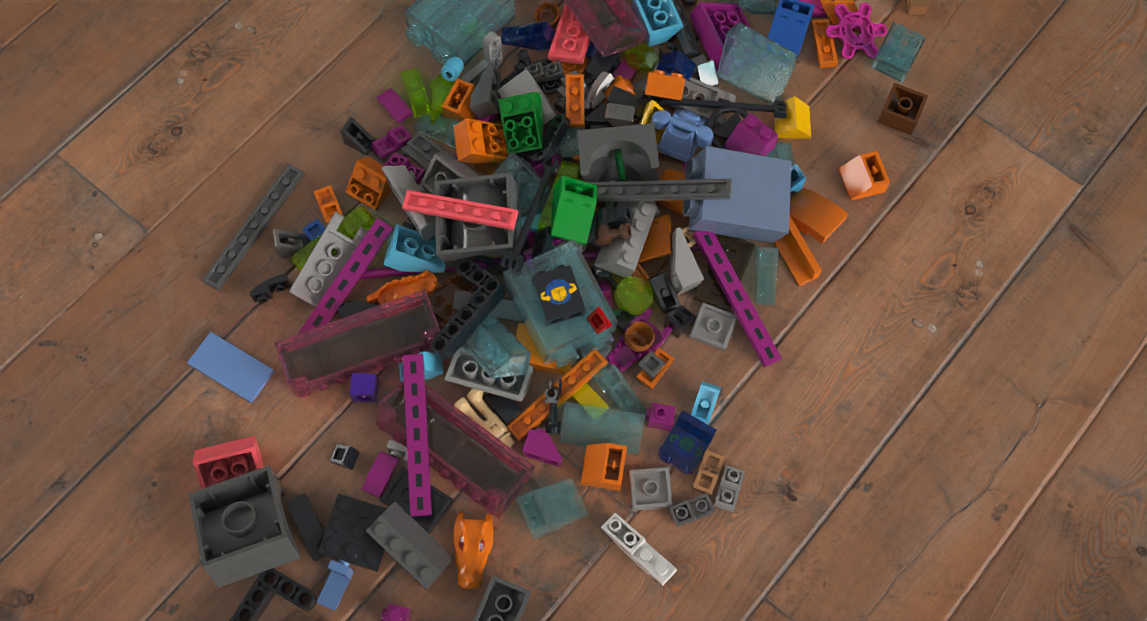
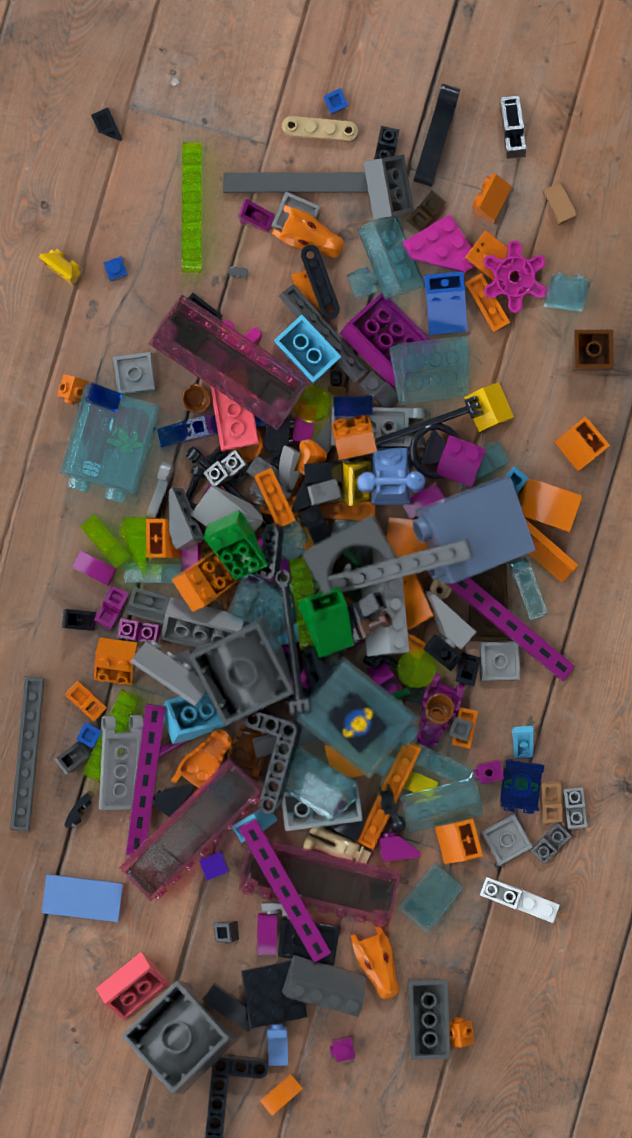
camera: 20 degrees left, 20 degrees up
(452, 69) = (136, 510): medium azure brick -> none
(460, 209) = (228, 677): coral tile -> none
(598, 320) = (403, 726): red slope -> none

